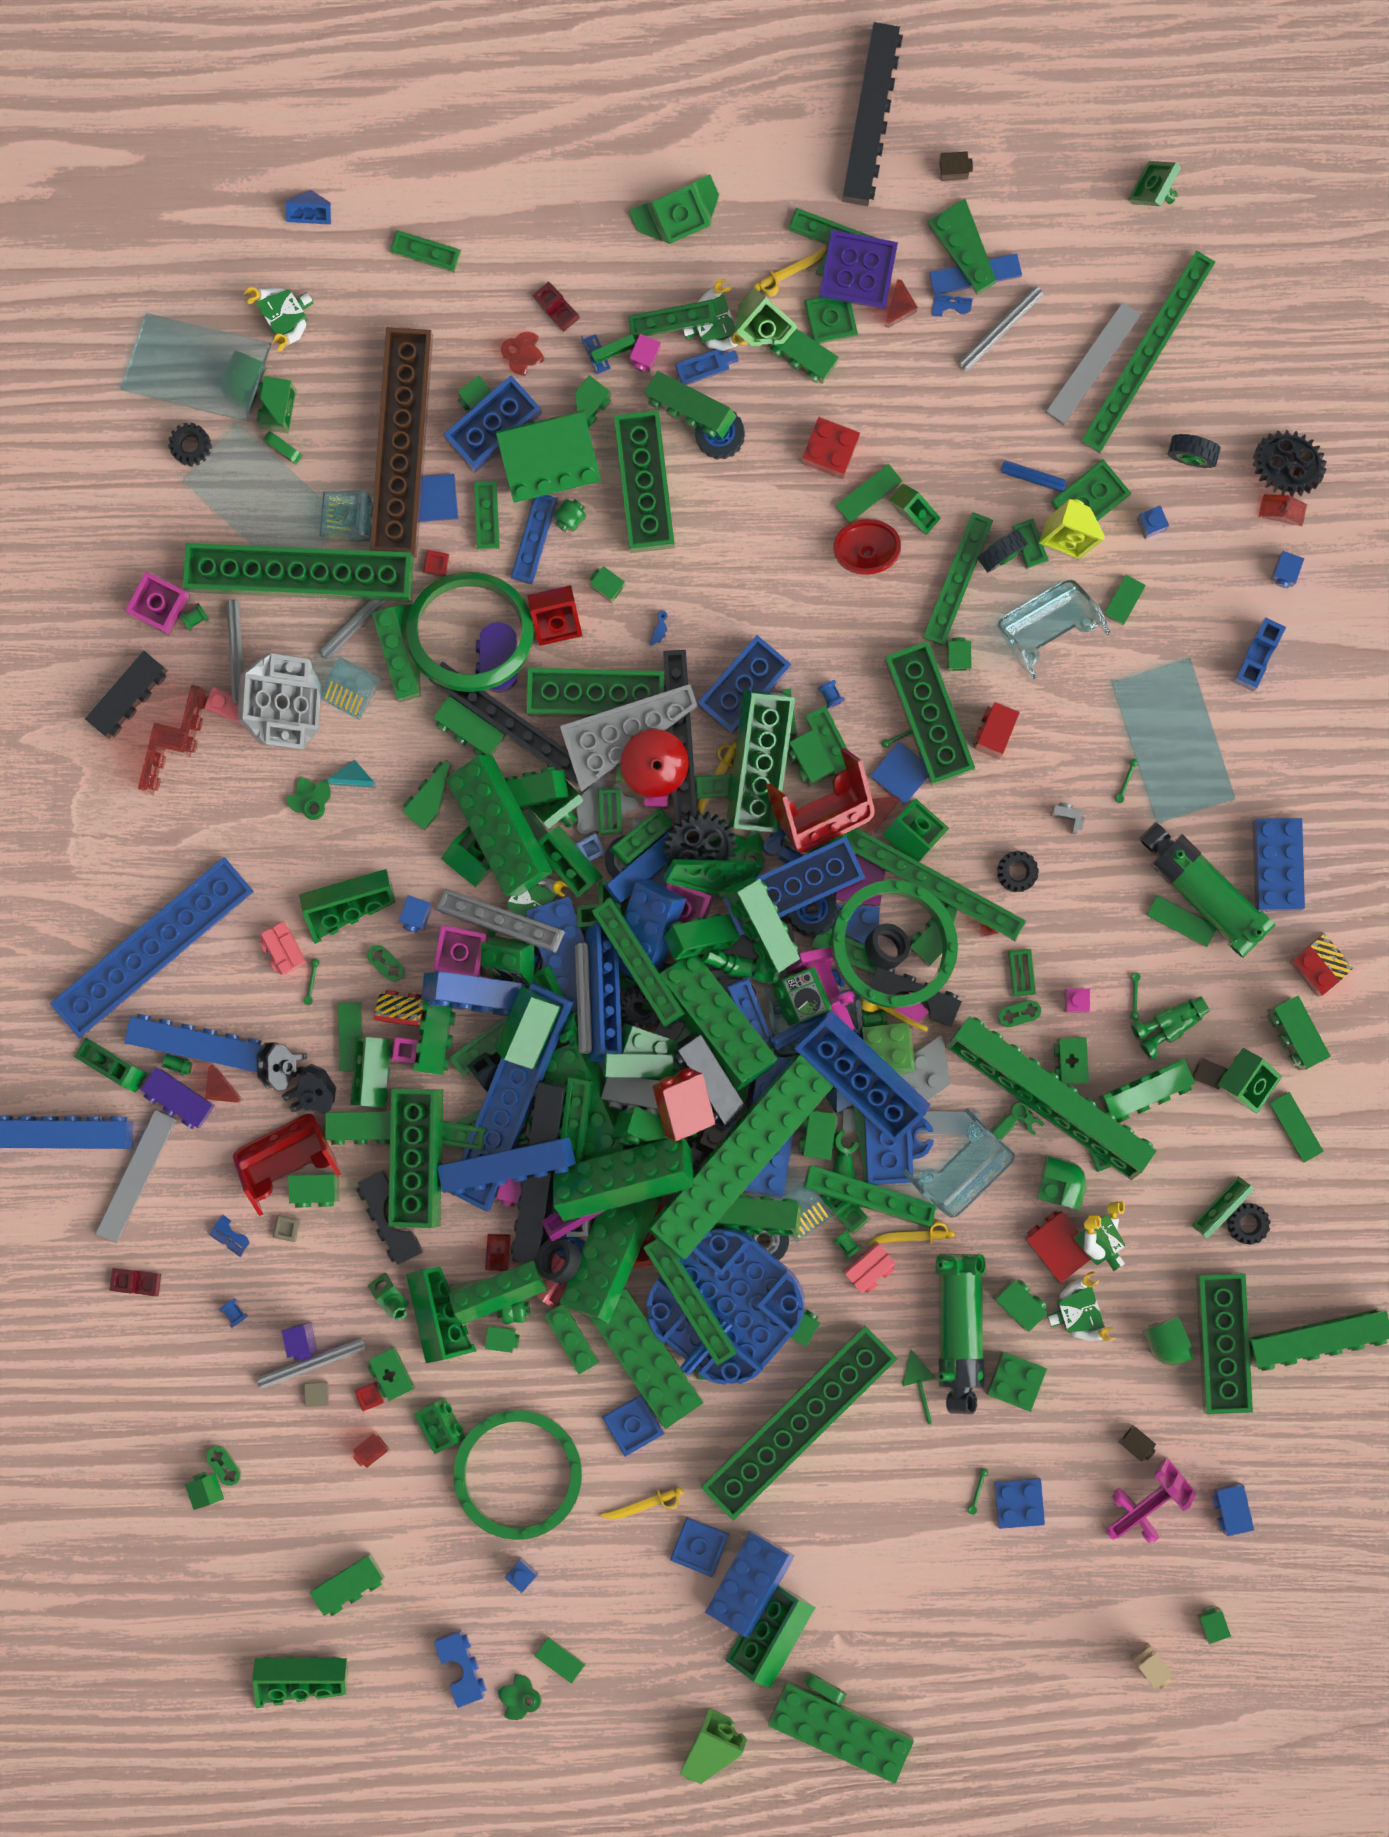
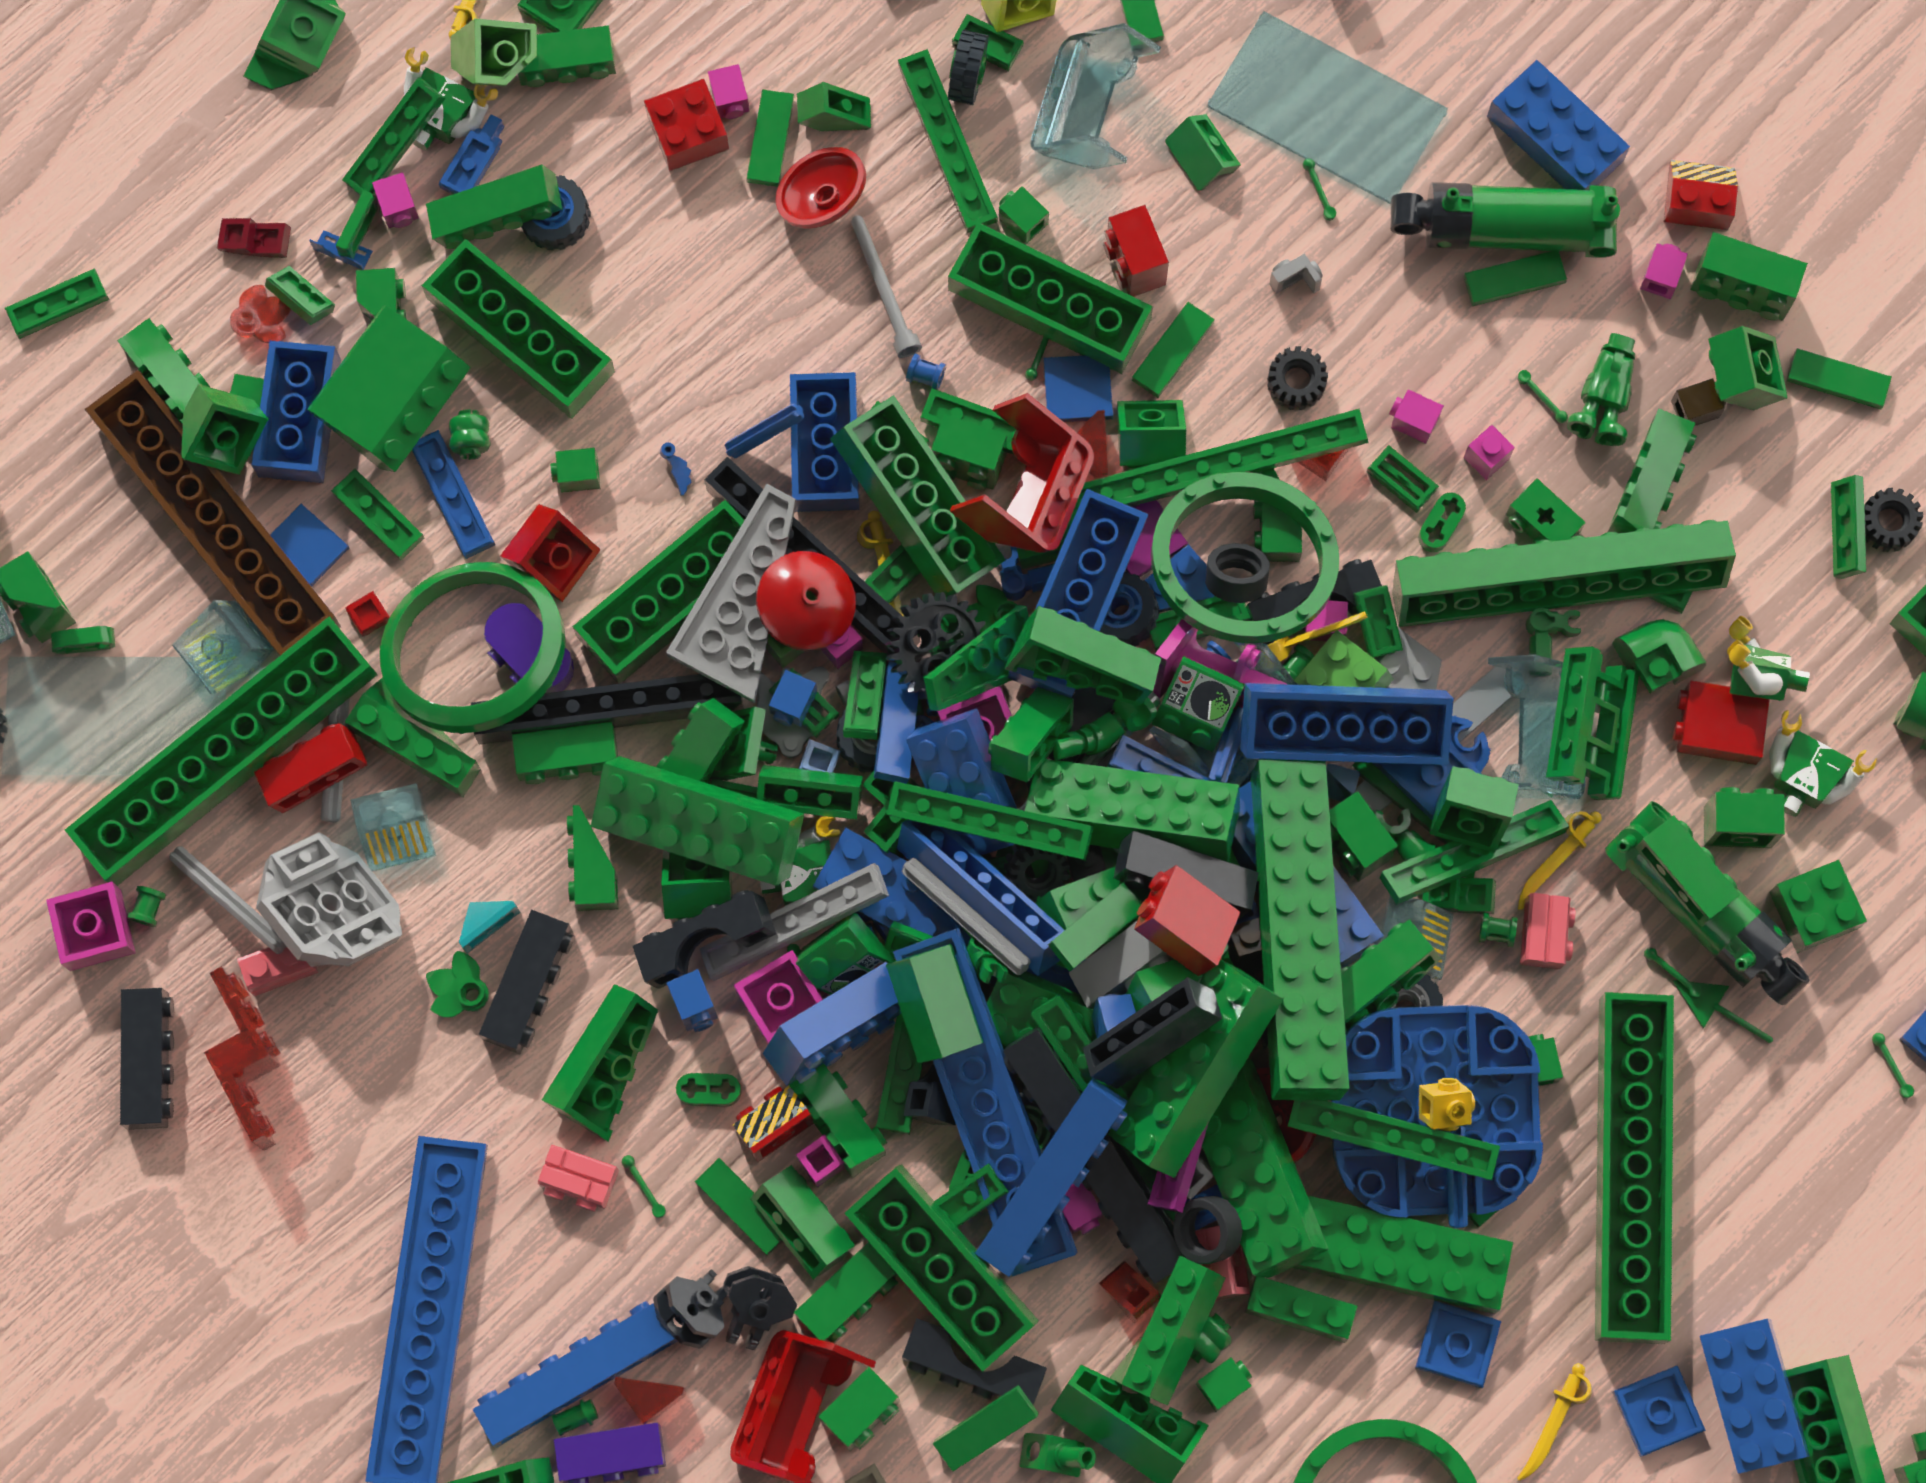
camera: 45 degrees left, 10 degrees down
(335, 620) = (310, 767): none -> red brick
(345, 827) = (526, 982): none -> black brick
(366, 1253) = (985, 1428): none -> green tile
(425, 878) = (667, 953): none -> black arch
(443, 402) = (220, 429): none -> green slope
(446, 350) = (162, 365): none -> wedge
(551, 360) = (299, 295): none -> green plate
(602, 806) = (792, 699): none -> blue brick
(605, 1119) = (1111, 1011): none -> blue brick
(614, 1144) = (1152, 1033): none -> black brick
(718, 652) = (764, 430): none -> blue axle
(730, 1309) = (1446, 1104): none -> yellow brick
(836, 667) = (906, 341): none -> light grey piece
(869, 449) = (729, 91): none -> dark pink brick
(886, 1177) = (1474, 808): none -> green brick
(916, 1364) = (1695, 990): none -> green hinge
(935, 1037) = (1380, 627): none -> green plate
(961, 1306) = (1688, 870): none -> green brick
(969, 797) = (1173, 349): none -> green tile
(984, 1177) = (1572, 747): none -> green fence
(1058, 946) = (1415, 415): none -> dark pink brick
(1084, 705) = (1201, 150): none -> green panel
(1261, 988) = (1664, 270): none -> dark pink brick

